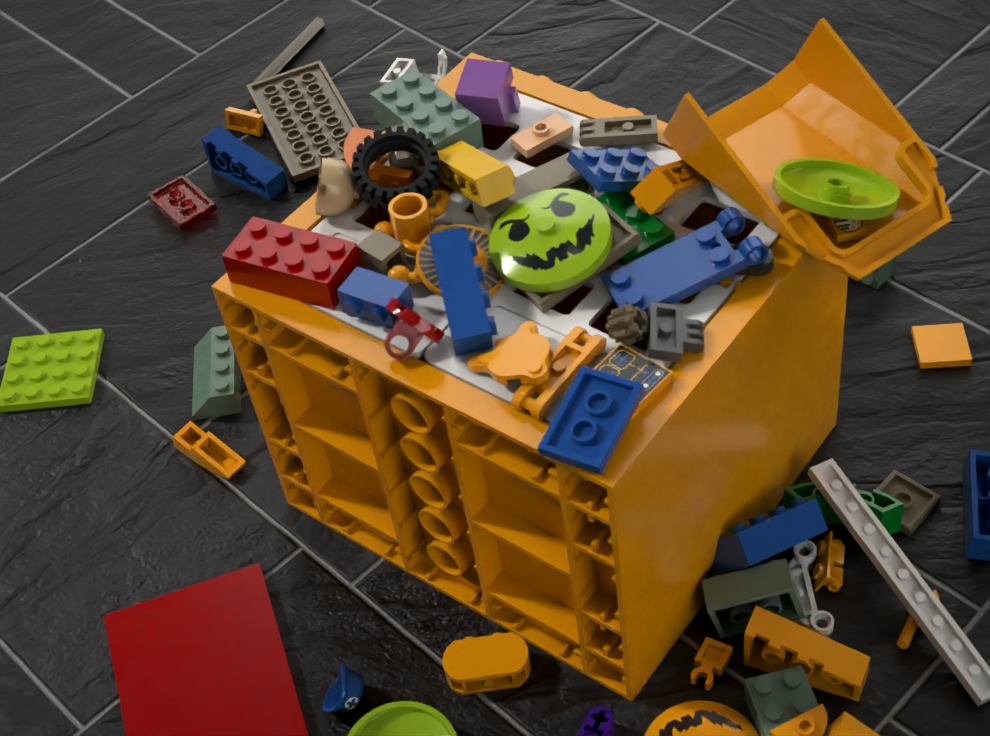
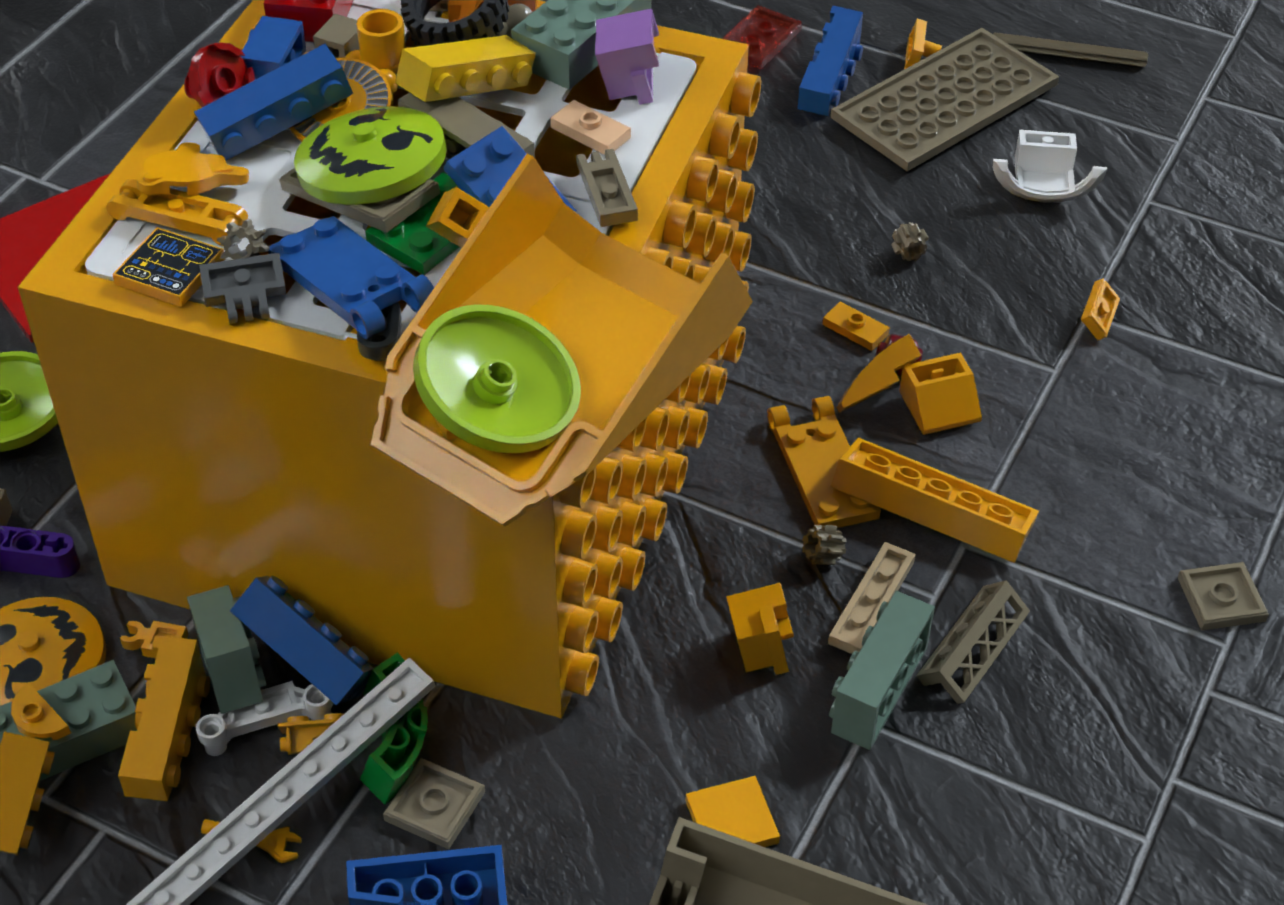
camera: 65 degrees right, 0 degrees up
(591, 420) = (92, 241): blue plate -> none

